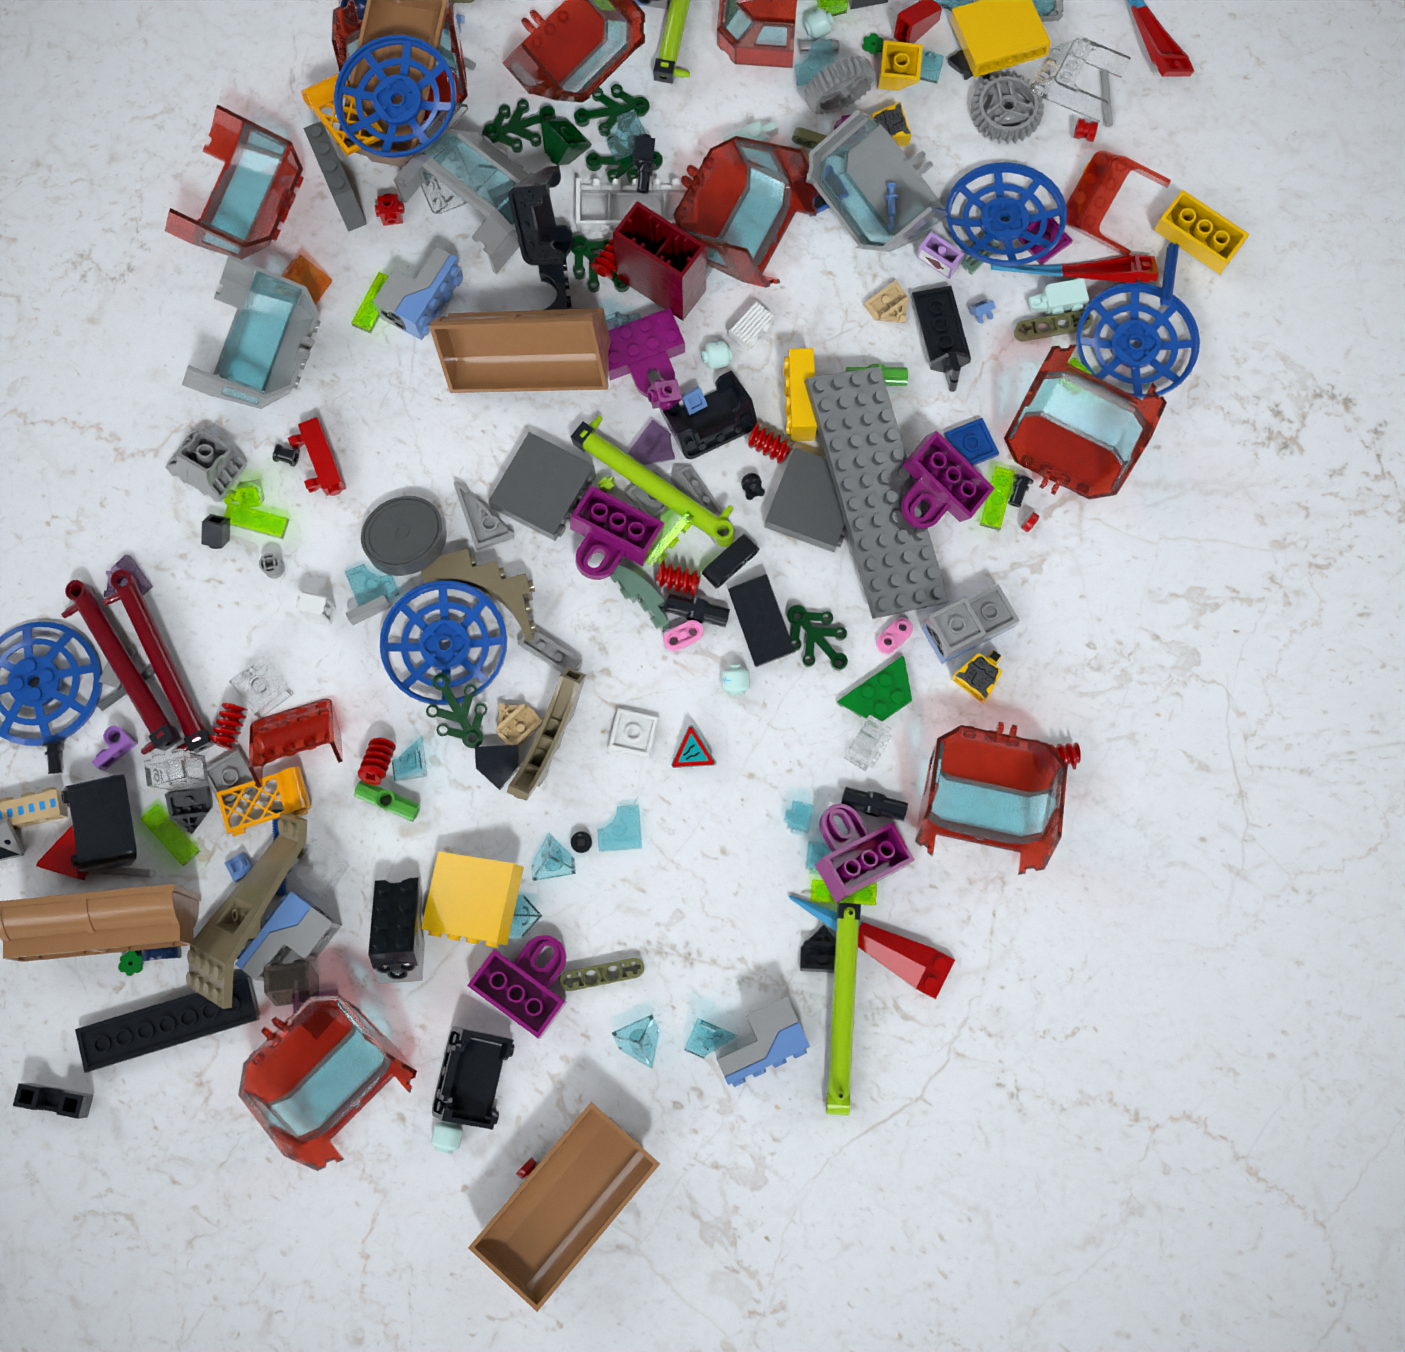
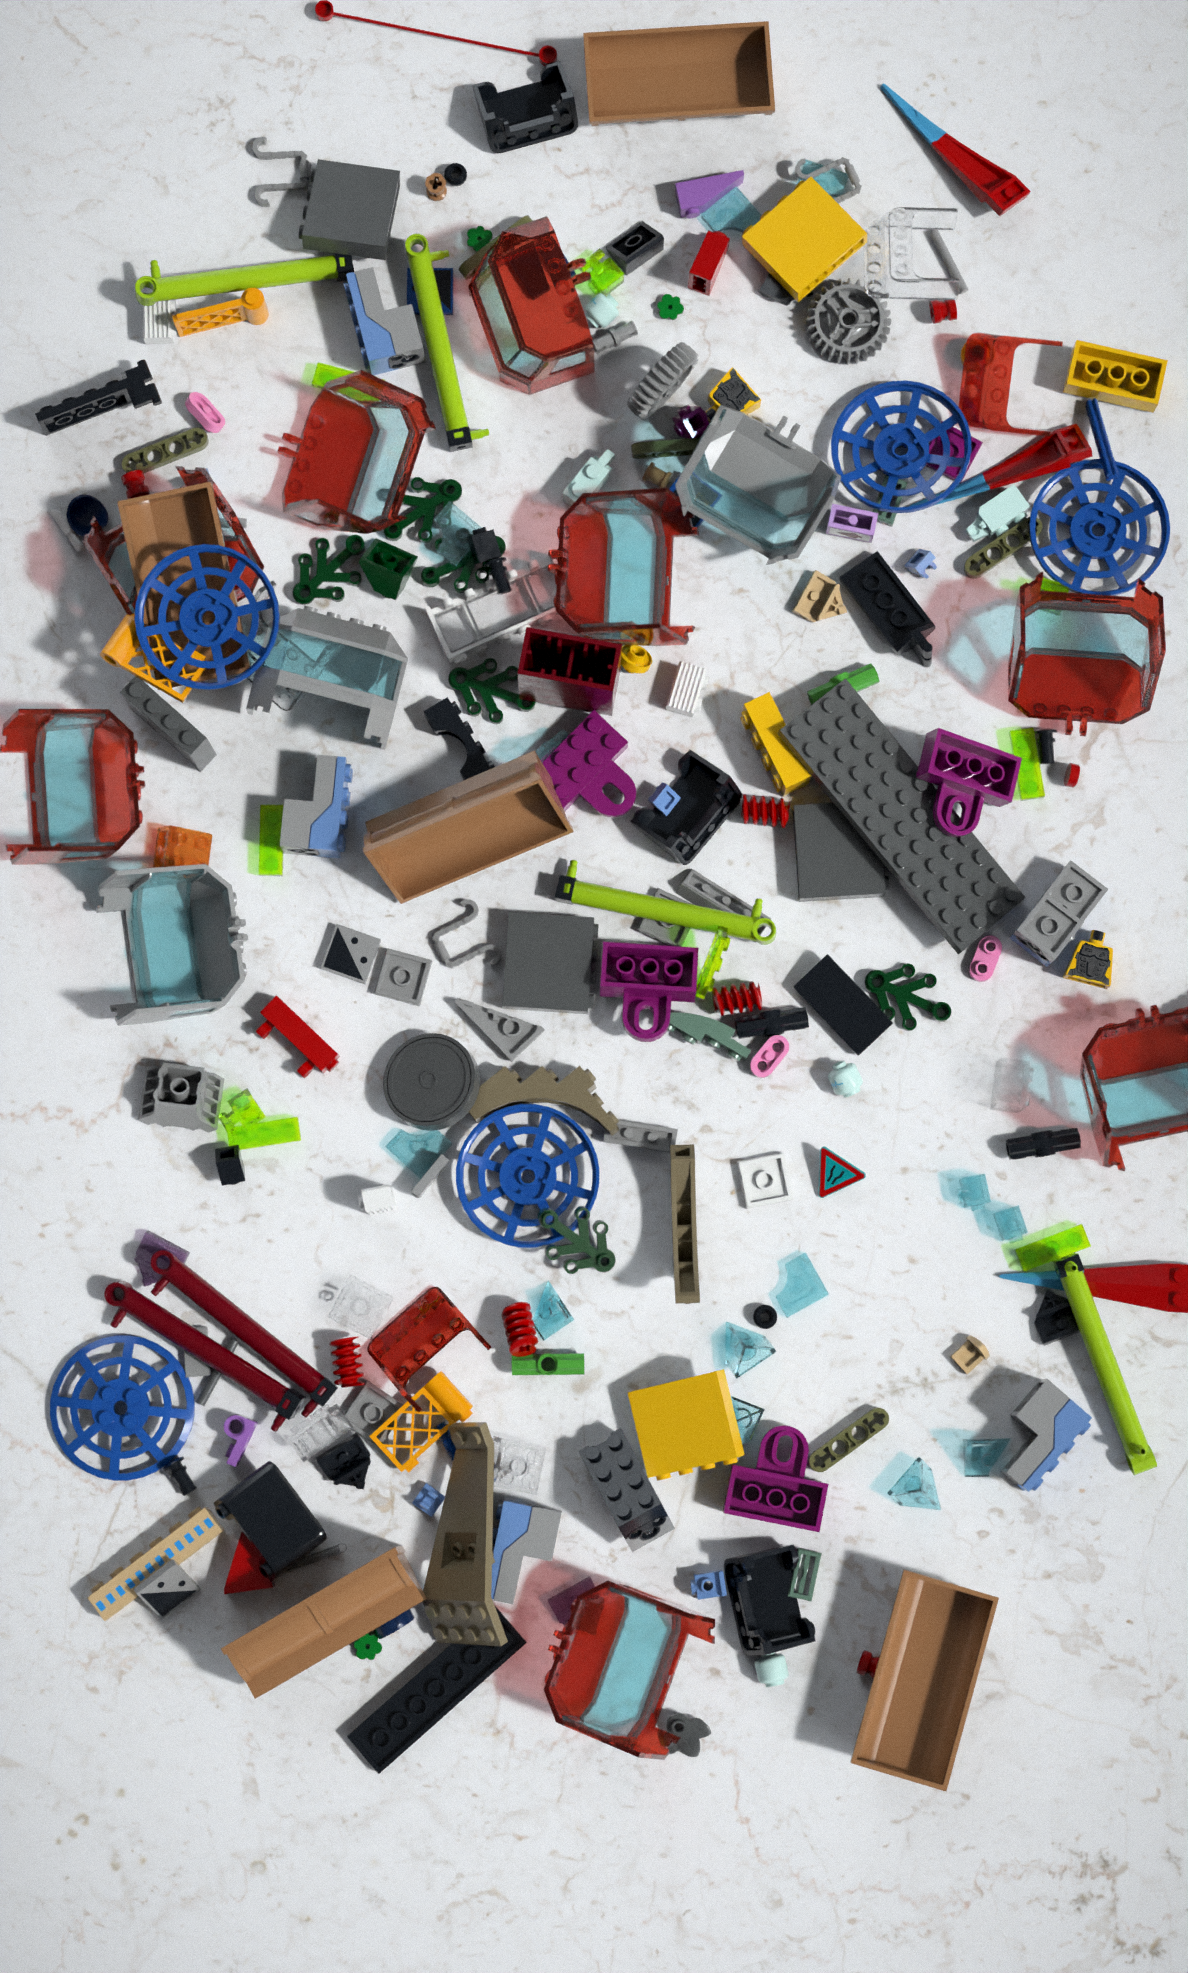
camera: 25 degrees left, 5 degrees up
(53, 1099) = (364, 1813): black arch -> none
(170, 835) = (341, 1500): clear neon green plate -> none
(272, 570) = (308, 1172): light grey wheel -> none
(283, 980) = (544, 1587): clear smoke piece -> none
(285, 455) = (260, 1049): black bush -> none
(353, 1160) = (690, 1733): none -> dark grey plate
(390, 209) = (238, 737): red brick -> none
(392, 414) = (350, 954): none -> tile
(424, 449) = (403, 977): none -> light grey tile
(437, 1043) = (717, 1580): none -> medium blue brick
(464, 441) = (441, 950): none -> light grey piece
(497, 763) = (642, 1274): black slope -> none
(501, 1086) = (799, 1595): none -> sand green tile
(517, 723) = (641, 1225): tan slope -> none
(534, 219) = (425, 695): black windscreen -> none
(605, 262) = (503, 679): red piece -> none
(606, 484) = (614, 931): lime plate -> none
(653, 445) = (642, 865): clear purple slope -> none
(664, 394) = (634, 809): magenta brick -> none
(717, 355) = (665, 737): light aqua head -> none
(721, 286) = (635, 659): none -> yellow plate
(730, 561) = (782, 955): black beam -> none
(735, 950) = (970, 1354): none -> tan tile
(752, 485) = (768, 865): black brick -> none
(819, 57) = (623, 360): clear light blue tile -> none
(858, 856) = (1054, 1205): magenta brick -> none
(881, 694) = (998, 1026): green wing -> none
(891, 198) = (774, 487): medium blue piece -> none
(899, 65) = (713, 324): yellow slope -> none
(931, 66) = (743, 309): clear light blue brick -> none
(973, 442) = (974, 715): blue tile -> none

